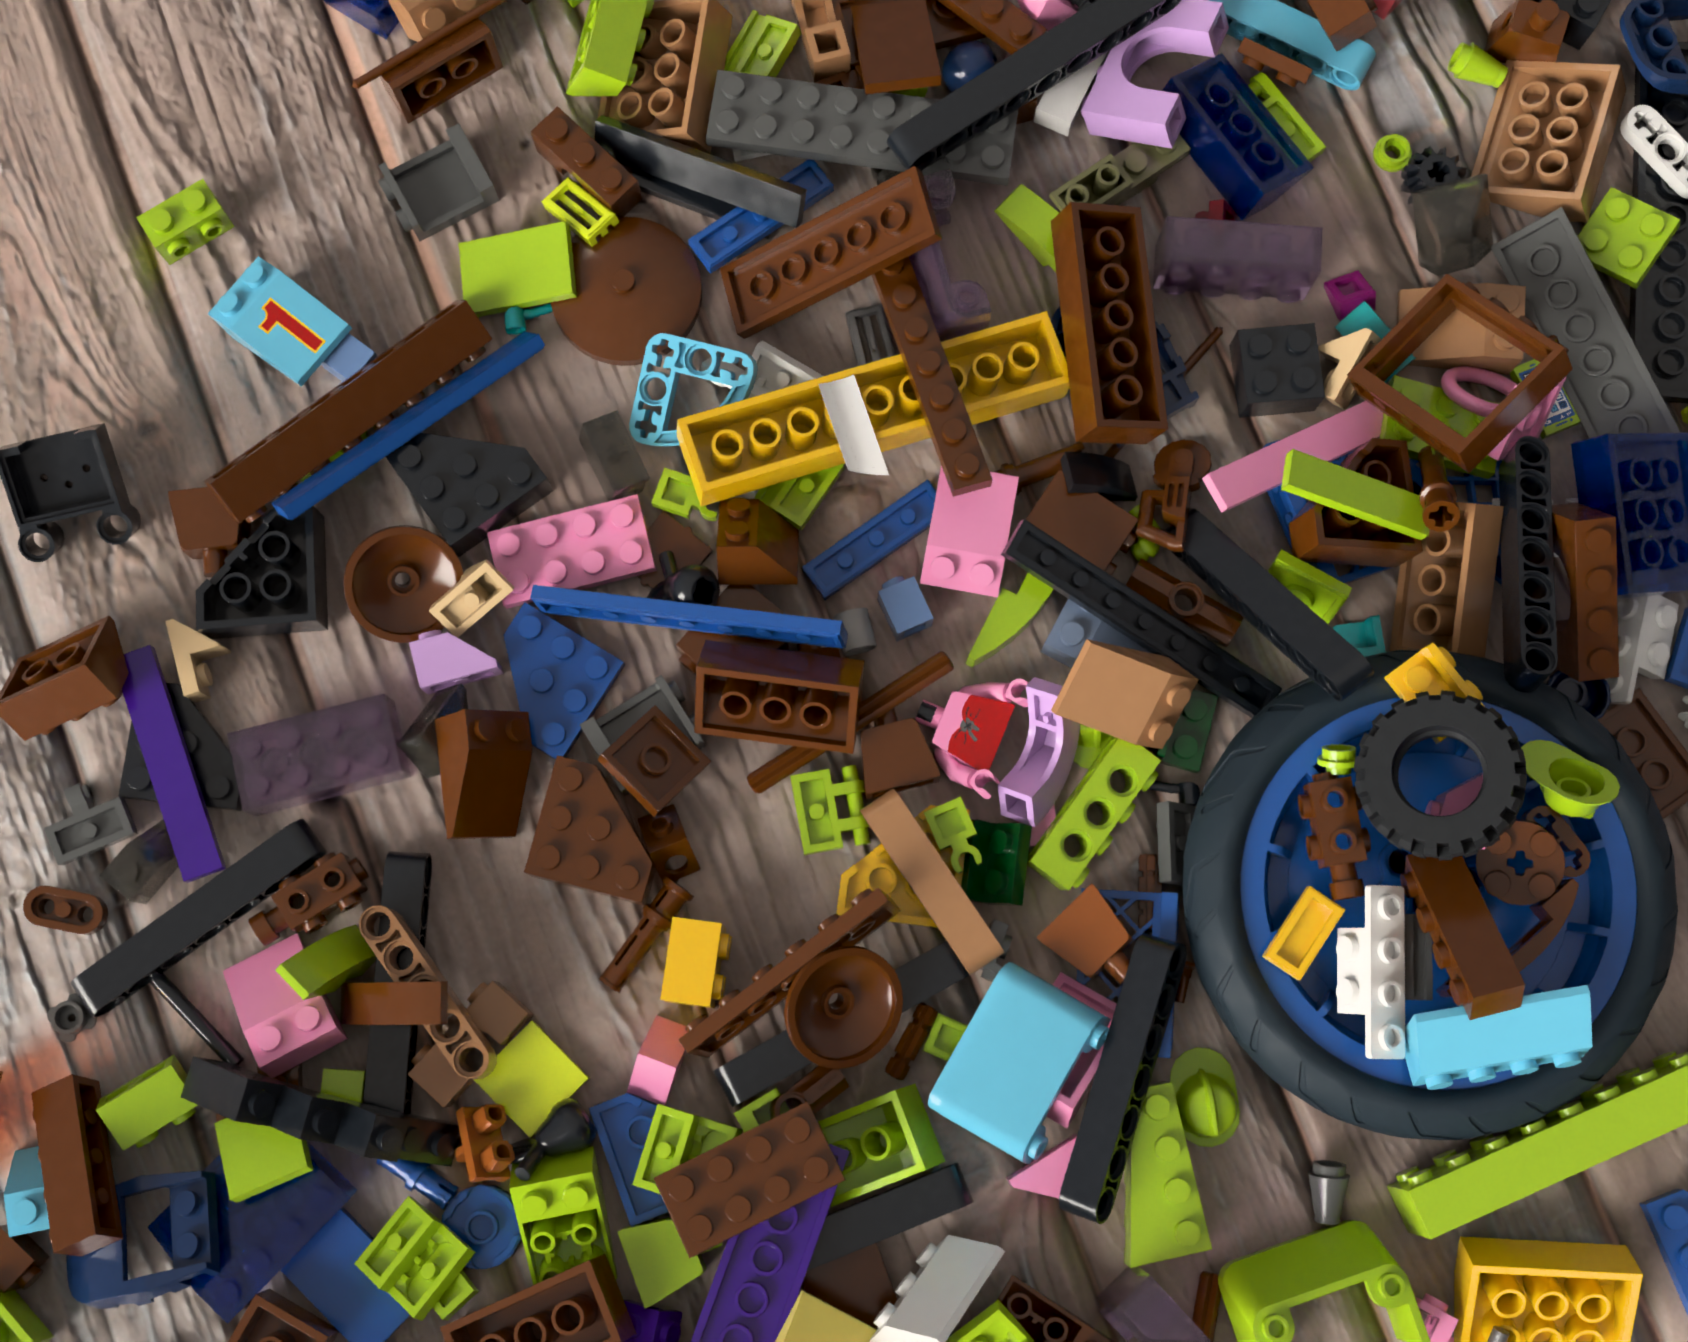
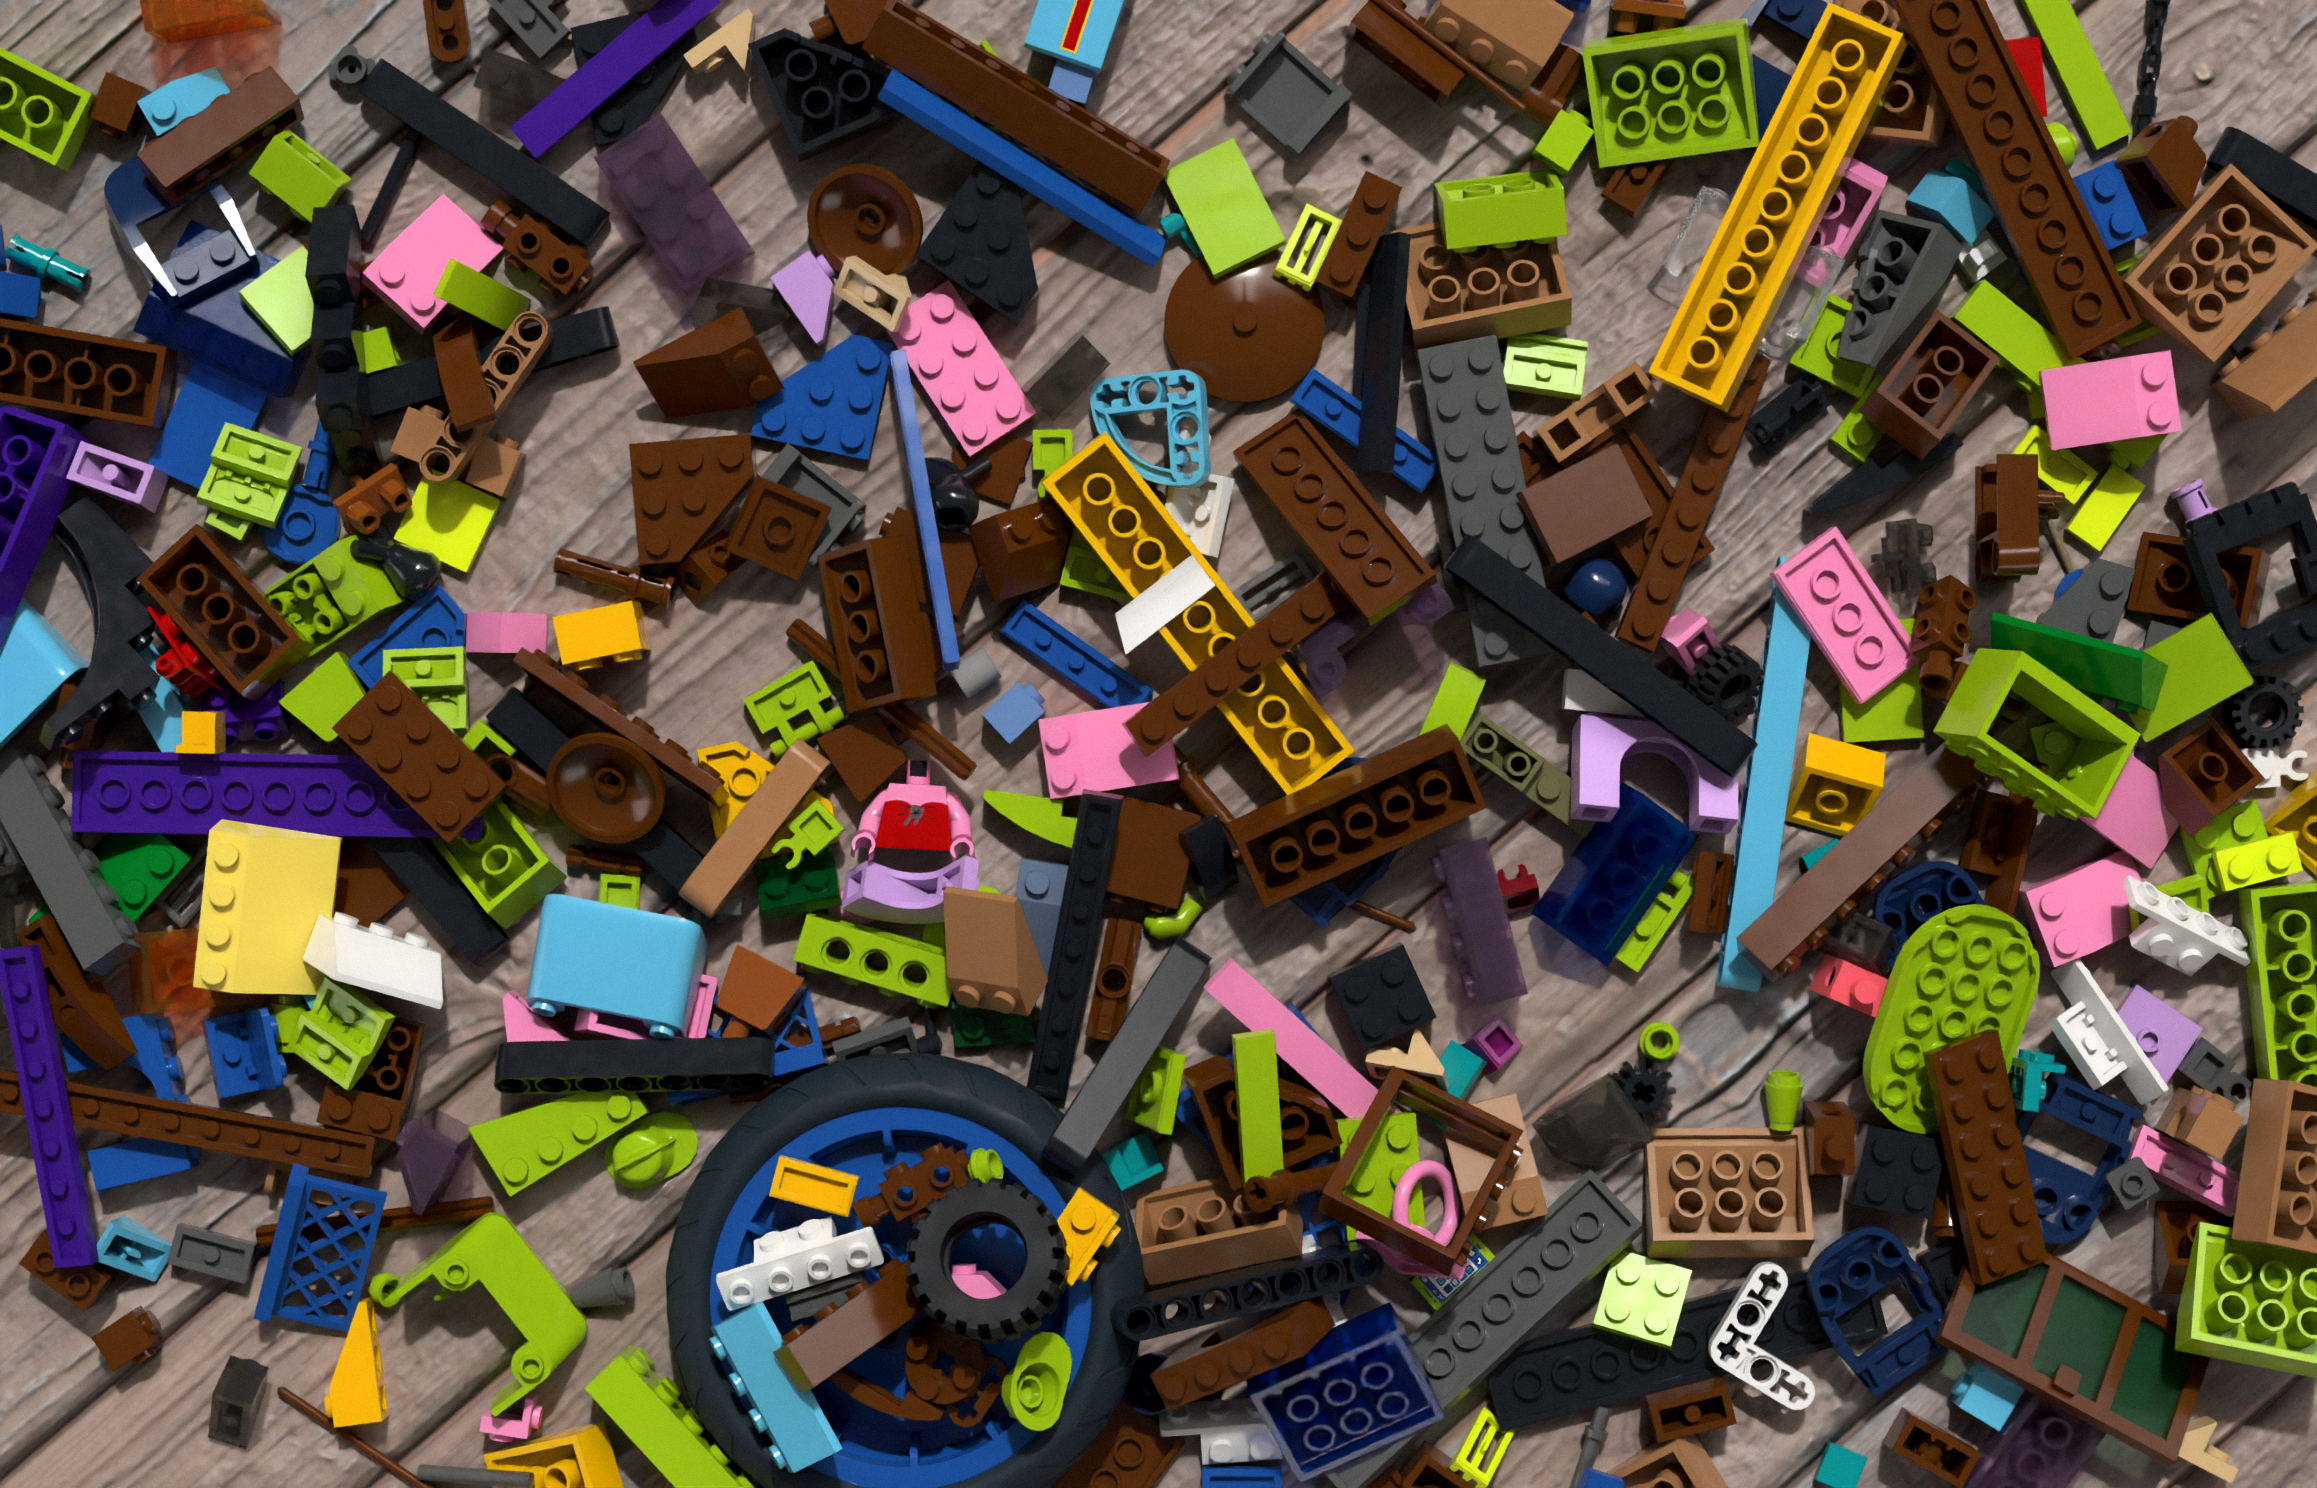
camera: 70 degrees right, 10 degrees up
(1177, 472) = (1250, 933): reddish brown piece -> none

